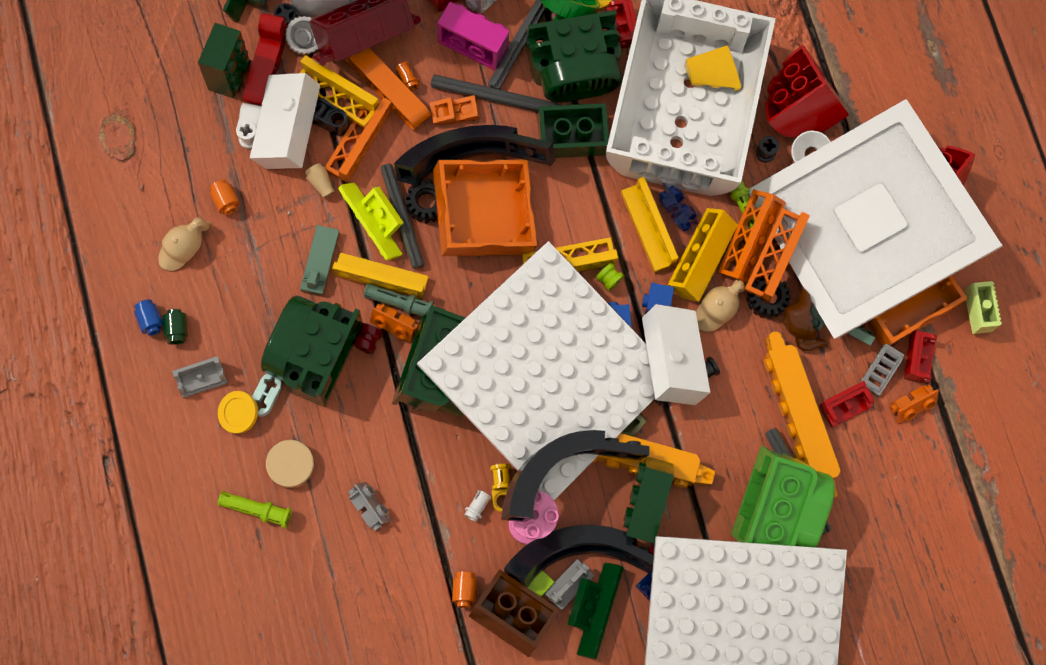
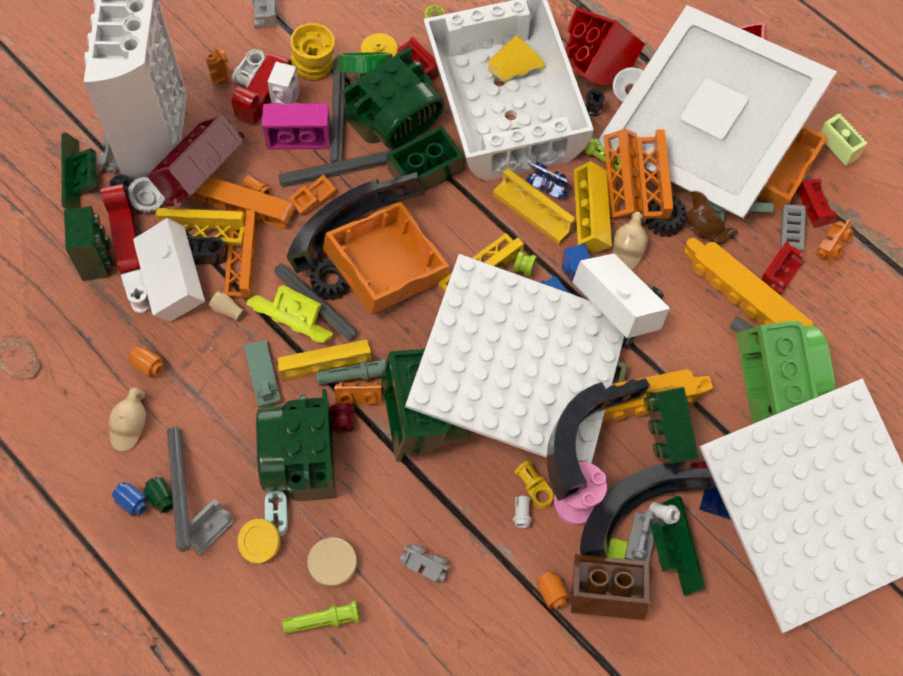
camera: 20 degrees left, 10 degrees down
(192, 331) = (179, 492): none -> dark grey axle
(602, 576) = (669, 513): none -> white pin

